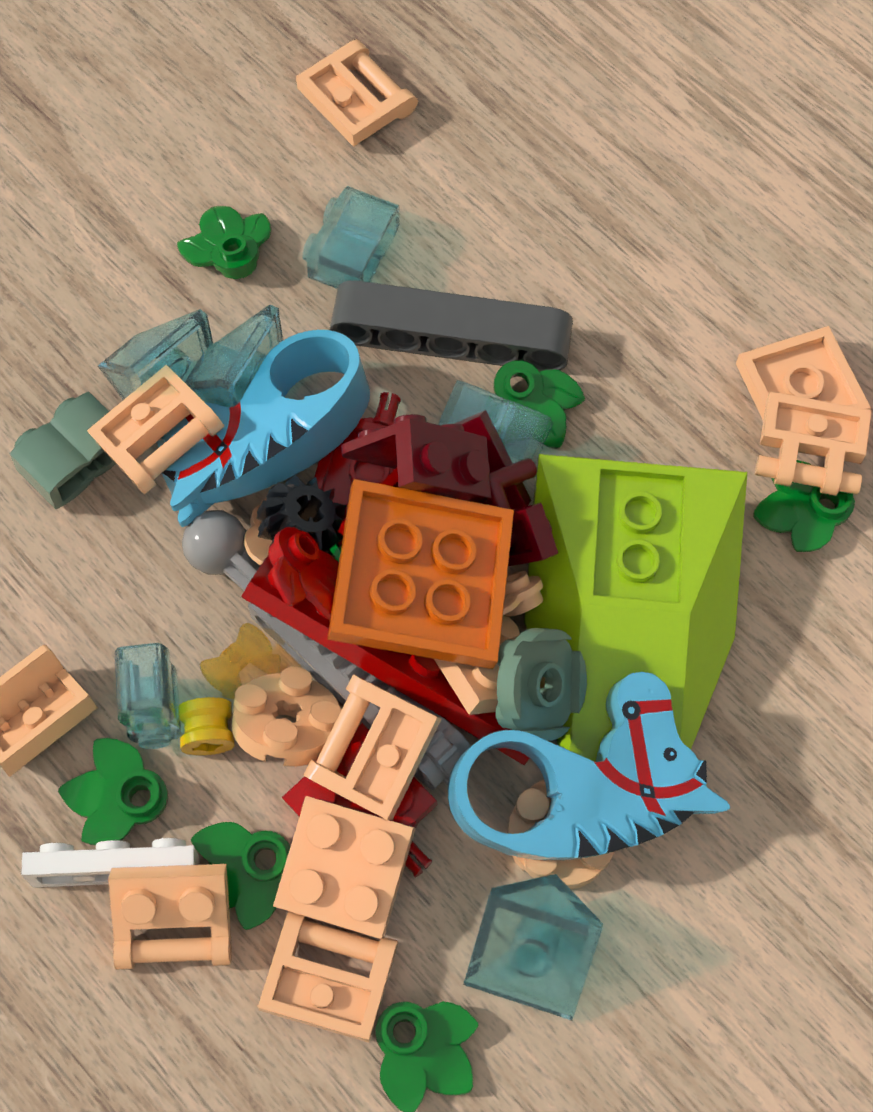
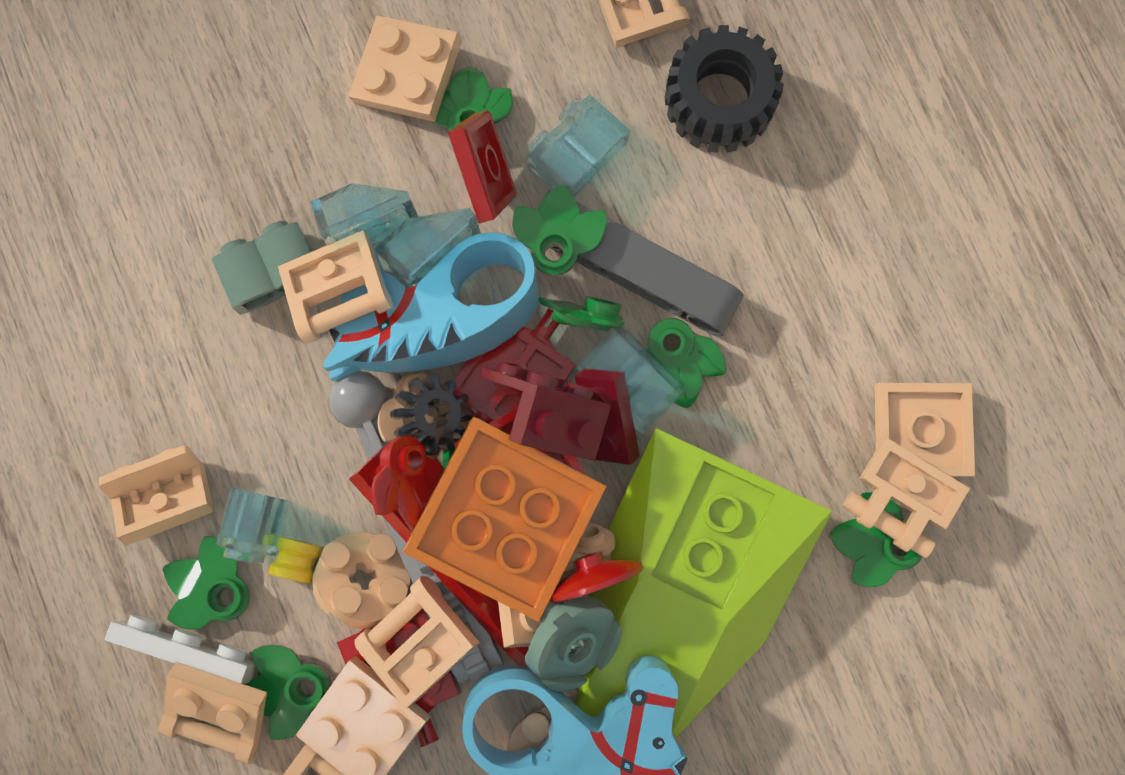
camera: 25 degrees right, 15 degrees up
(149, 224) = (405, 68): none -> light nougat plate
(250, 647) = (327, 514): clear yellow piece -> none
(266, 271) = (483, 165): none -> red tile
(365, 306) = (558, 225): none -> green plate
(432, 380) = (595, 313): none -> green plate
(475, 114) = (729, 55): none -> black tyre
(531, 530) = (620, 498): dark red plate -> none
(537, 602) = (593, 575): none -> red dish

